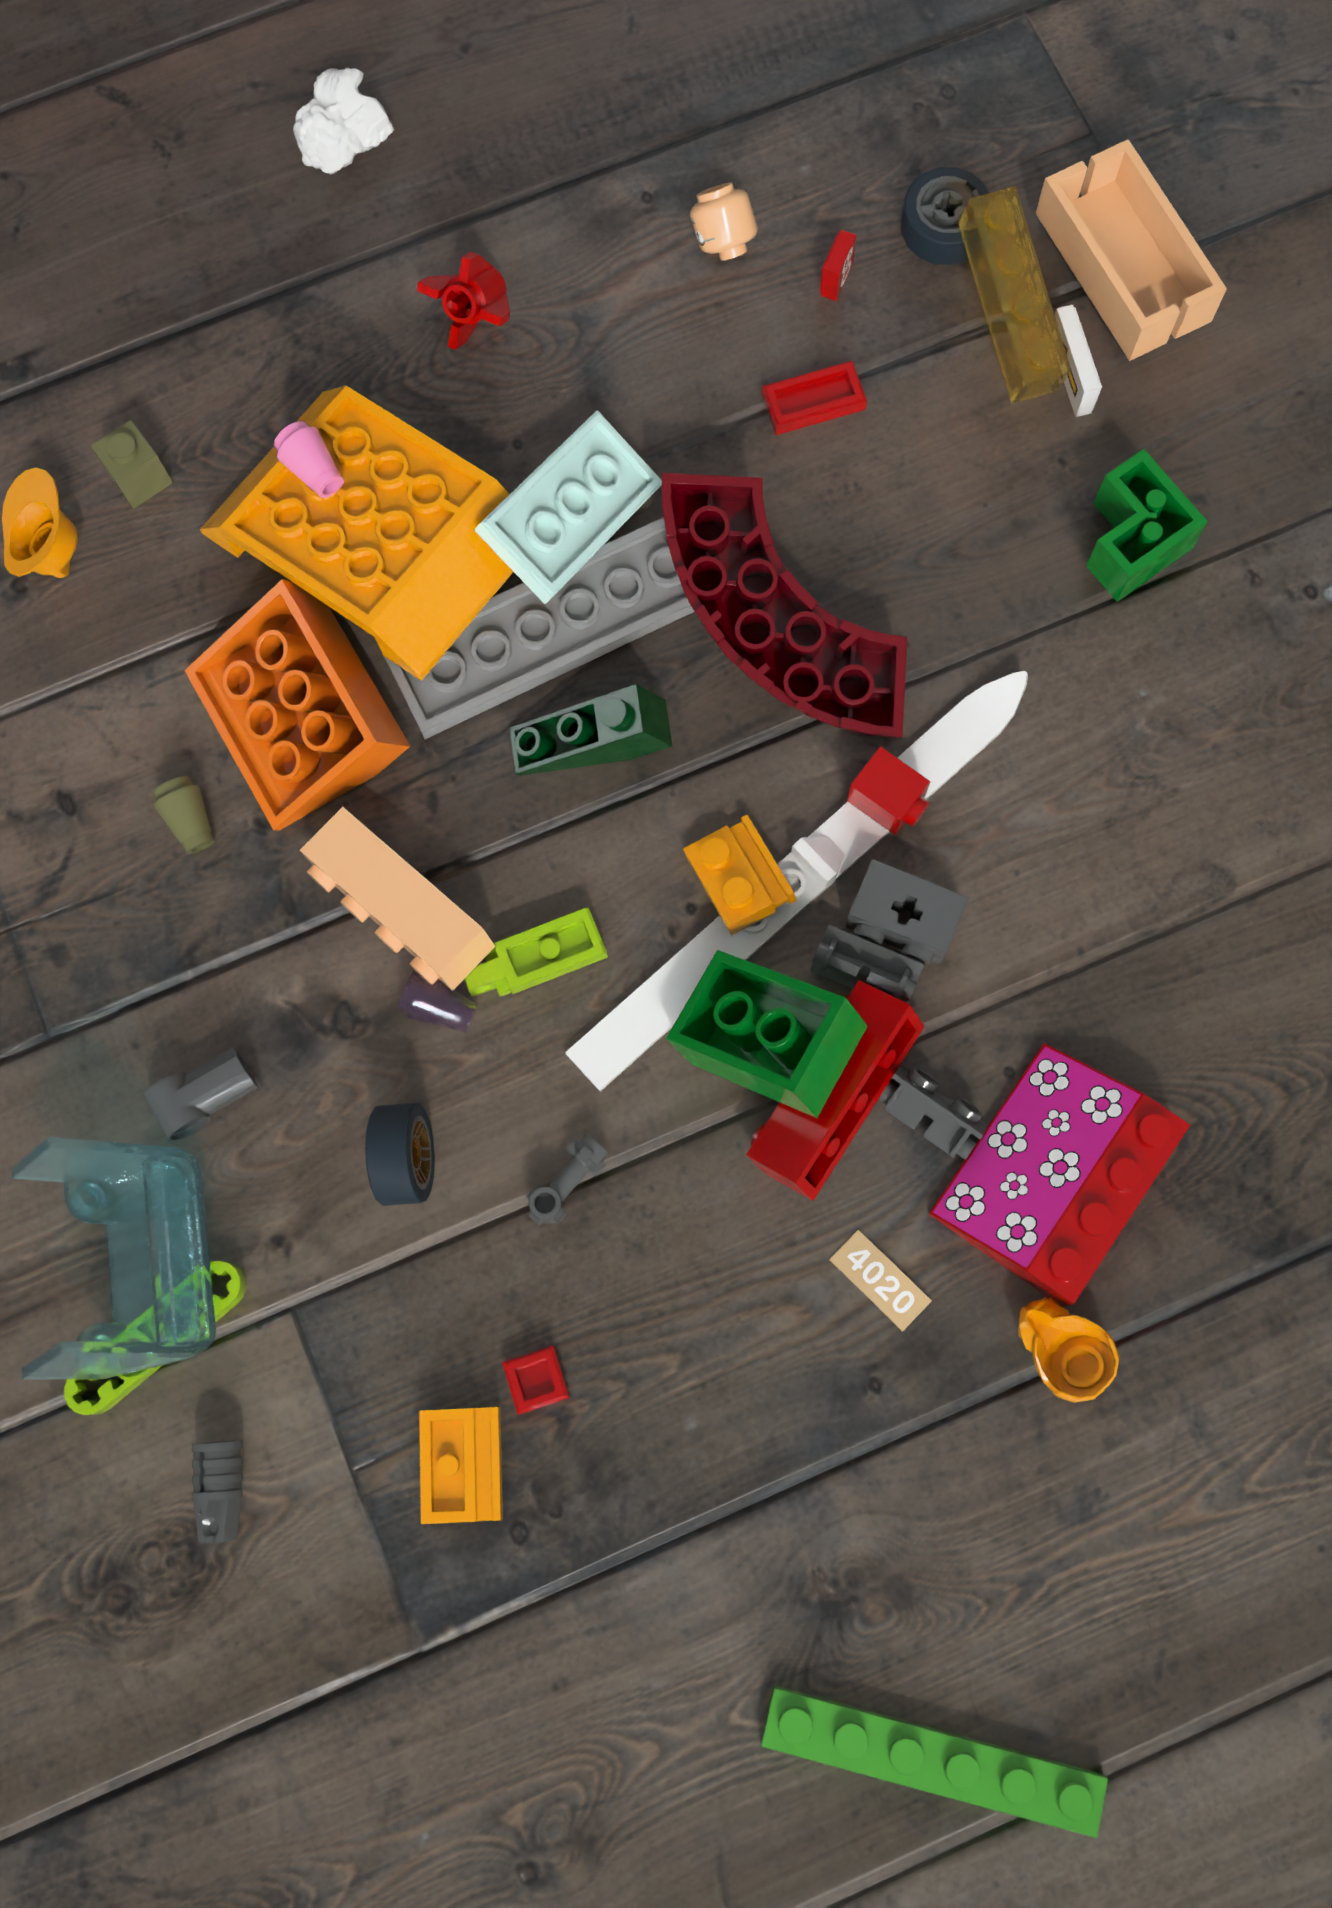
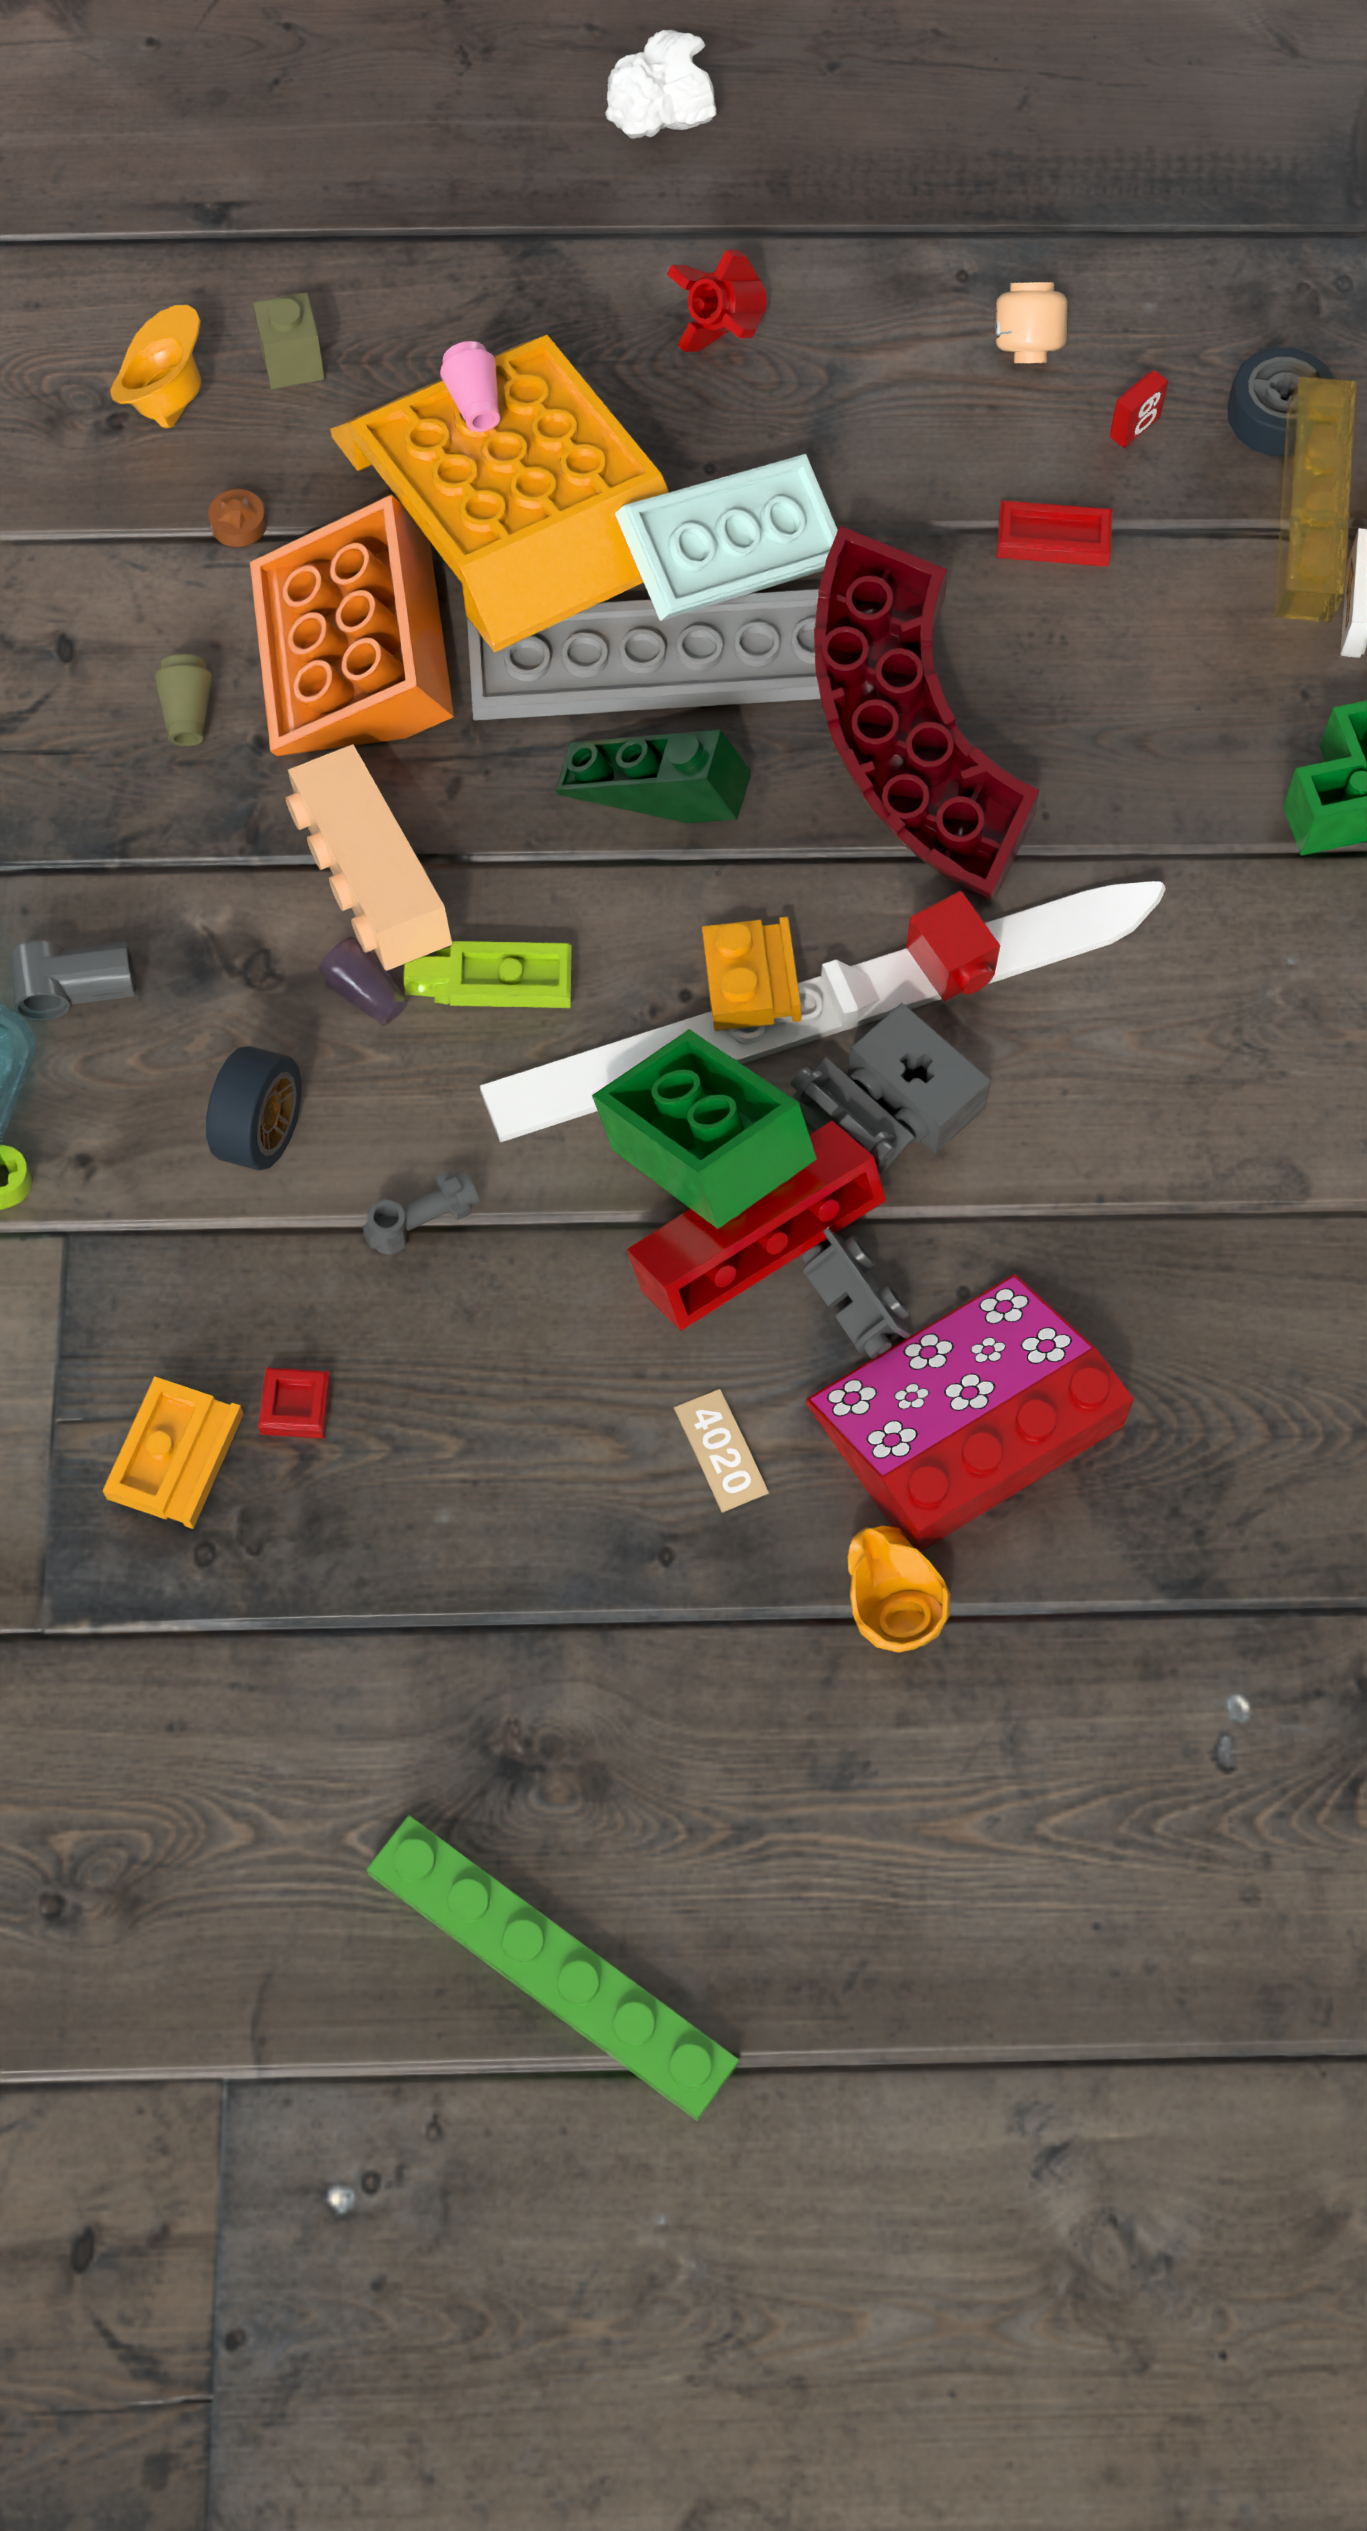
camera: 15 degrees right, 10 degrees down
(157, 635) = (237, 518): none -> dark orange tile

